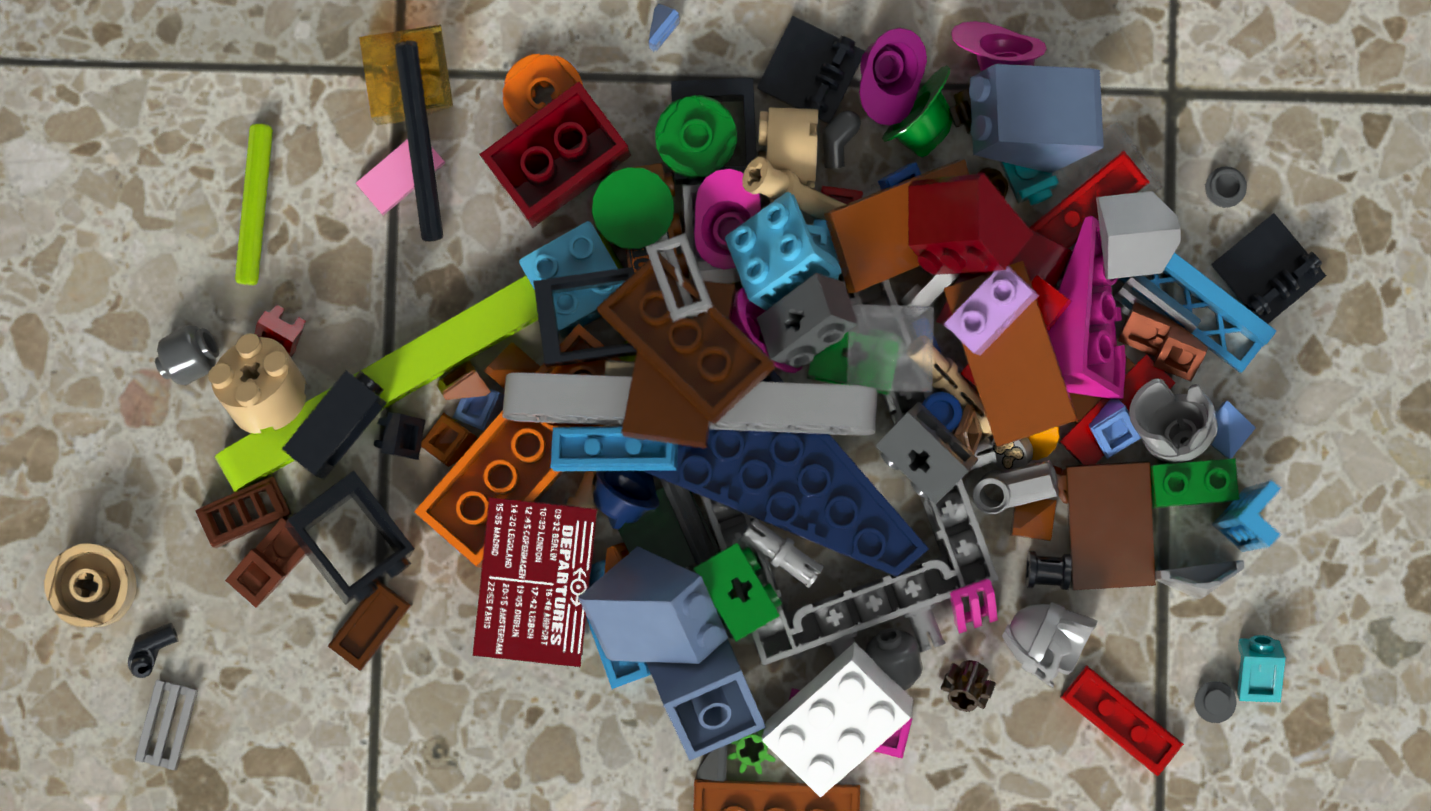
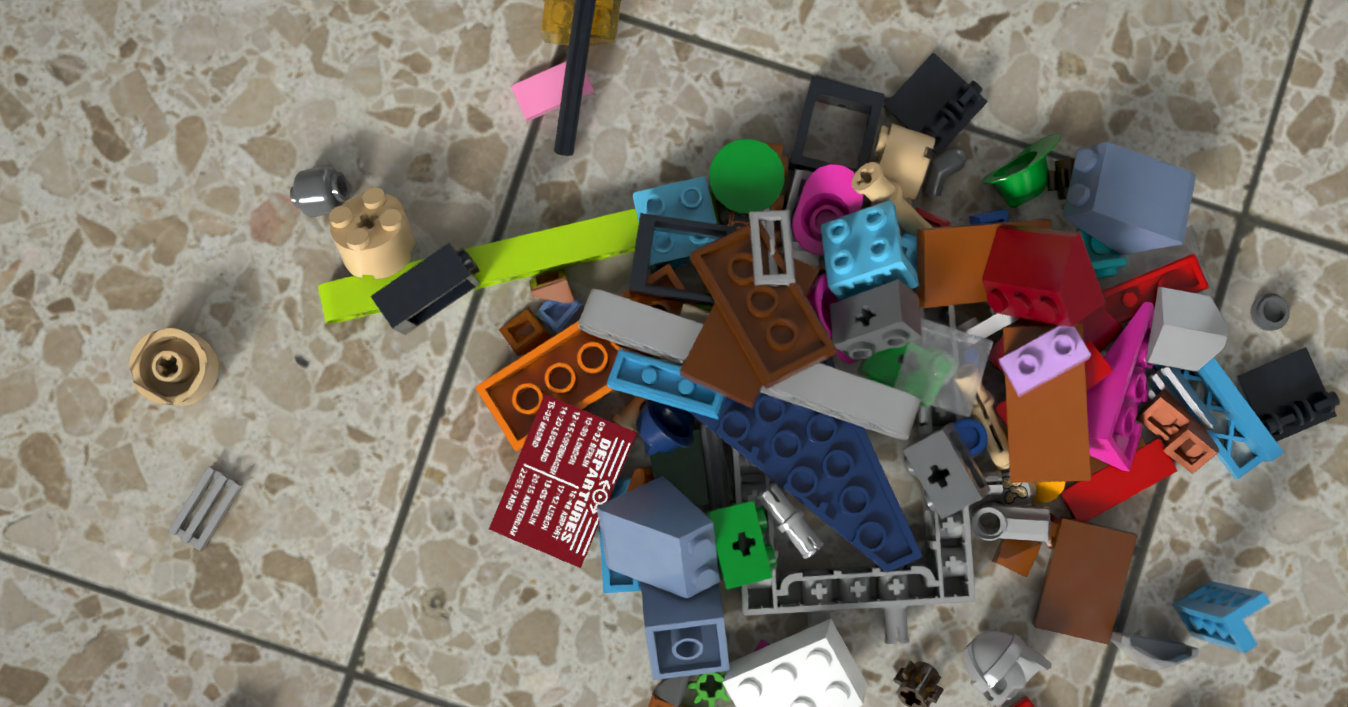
camera: 15 degrees right, 0 degrees up
(146, 648) = (208, 437): black arm -> none
(209, 524) = (295, 349): copper slope -> none
(253, 204) = (417, 78): lime axle -> none
(266, 565) = (338, 393): copper slope -> none
(273, 327) = (401, 188): tile -> none
(347, 488) = (400, 357): black window -> none
(369, 626) = (408, 474): reddish brown tile -> none
(401, 435) = (485, 316): black tile -> none
(510, 360) = (600, 279): dark orange slope -> none
(529, 73) = (704, 37): orange plate -> none
(556, 154) = (692, 110): dark red slope -> none
(663, 24) = (818, 27): medium blue slope -> none
(696, 136) = (820, 130): green tile -> none
(892, 75) = (1007, 127): magenta piece -> none
(897, 656) = (863, 639): dark grey head -> none
(969, 429) = (987, 458): medium nougat slope -> none
(976, 612) = (950, 616): dark pink tile -> none
(997, 45) = (1103, 127): dark pink piece -> none
(1048, 570) = (1018, 603): black bush -> none
(1113, 428) = (1113, 495): medium blue slope -> none
(1159, 413) = (1170, 509): light grey helmet -> none
(1194, 483) = (1172, 565): green brick -> none
(1232, 430) = (1210, 525): medium blue slope -> none

